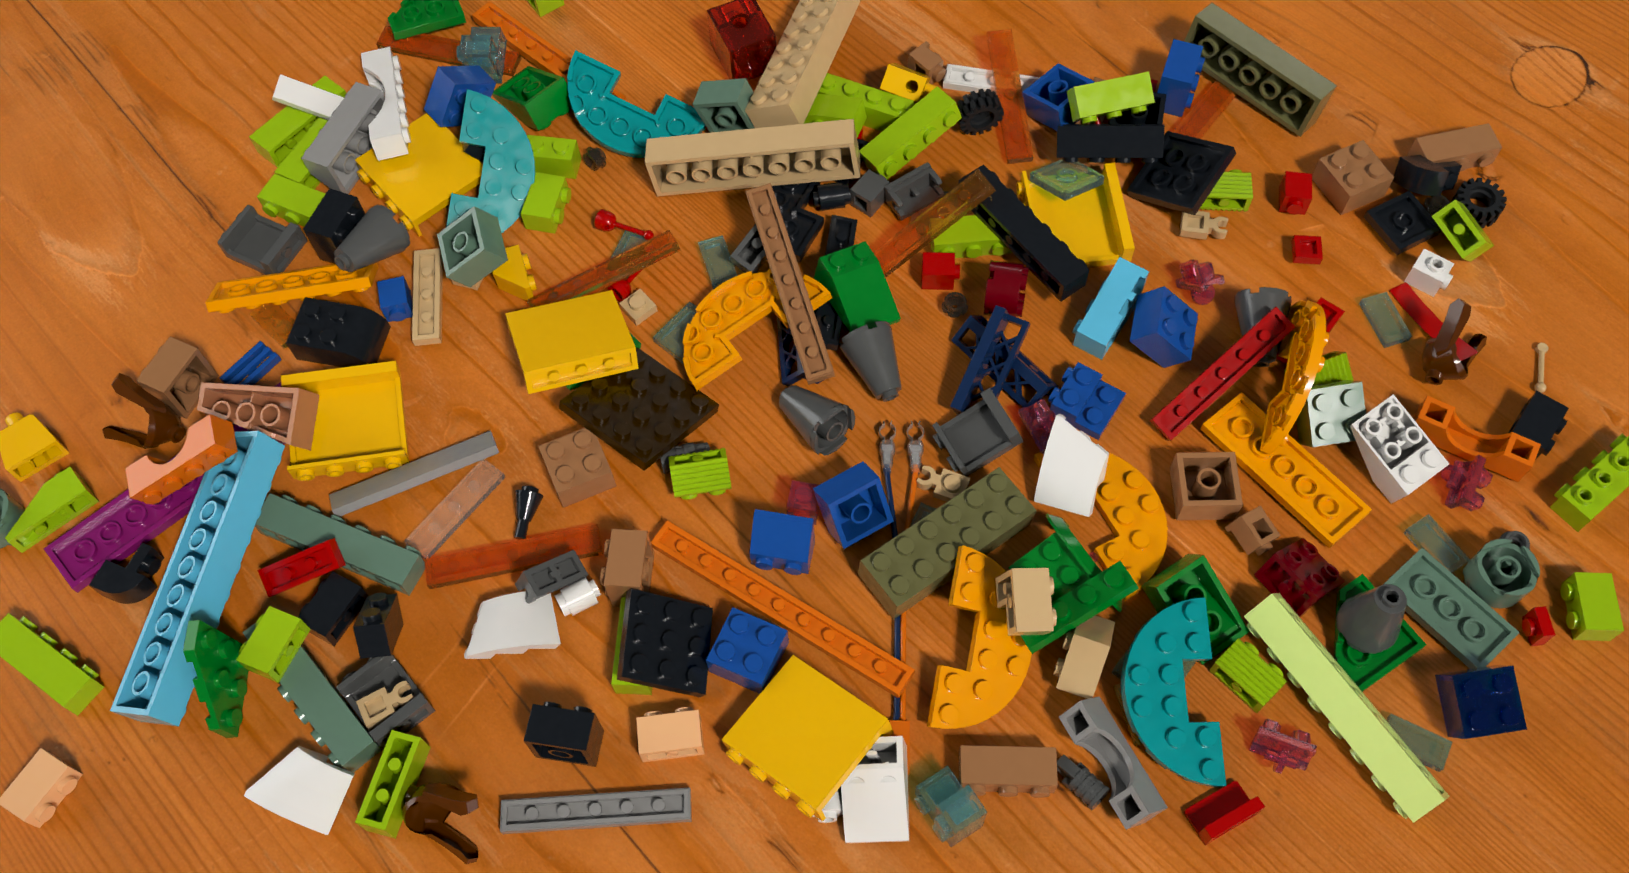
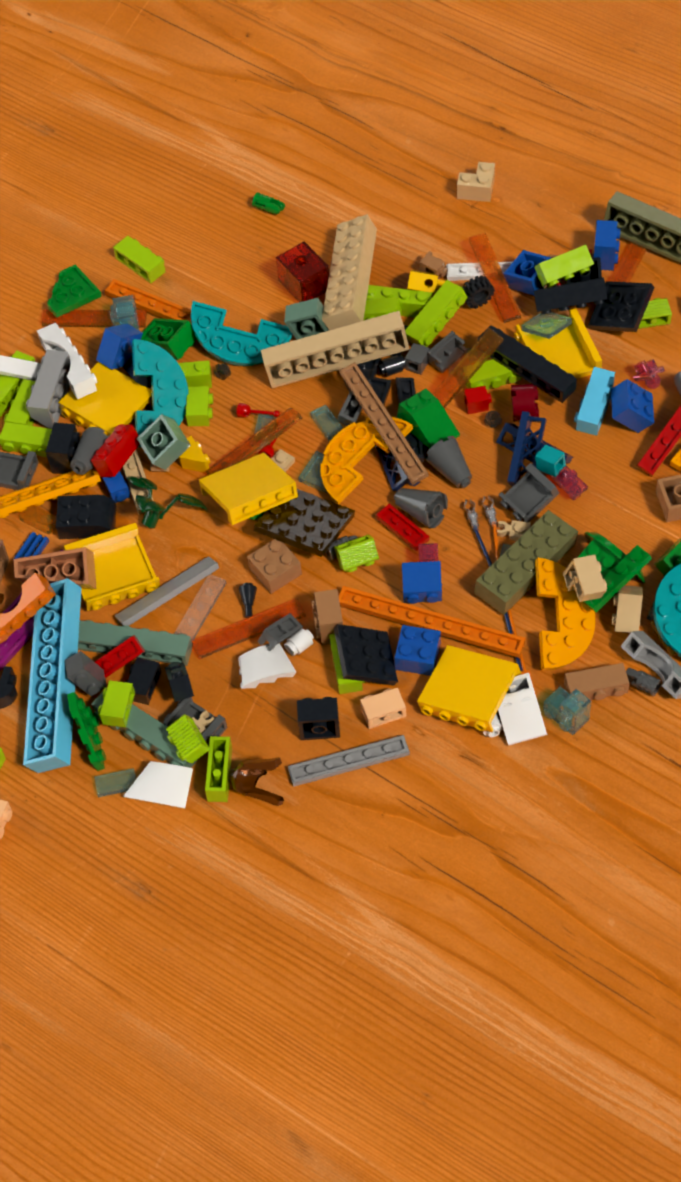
camera: 10 degrees left, 5 degrees down
(241, 764) = (114, 782): none -> clear light blue tile
(243, 584) = (85, 673): none -> dark grey brick
(354, 729) = (187, 739): none -> lime brick
(403, 246) = (116, 450): none -> red brick
(428, 350) = (153, 508): none -> dark green plant
(780, 445) = (402, 527): none -> red plate
(853, 504) = (461, 550): blue brick -> none
(1021, 388) = (550, 460): none -> teal brick
(1070, 469) = (593, 503): white slope -> none
(1086, 400) = (592, 461): blue plate -> none
(1135, 518) = (628, 515): light orange plate -> none
(1200, 225) = (641, 339): tan plate -> none

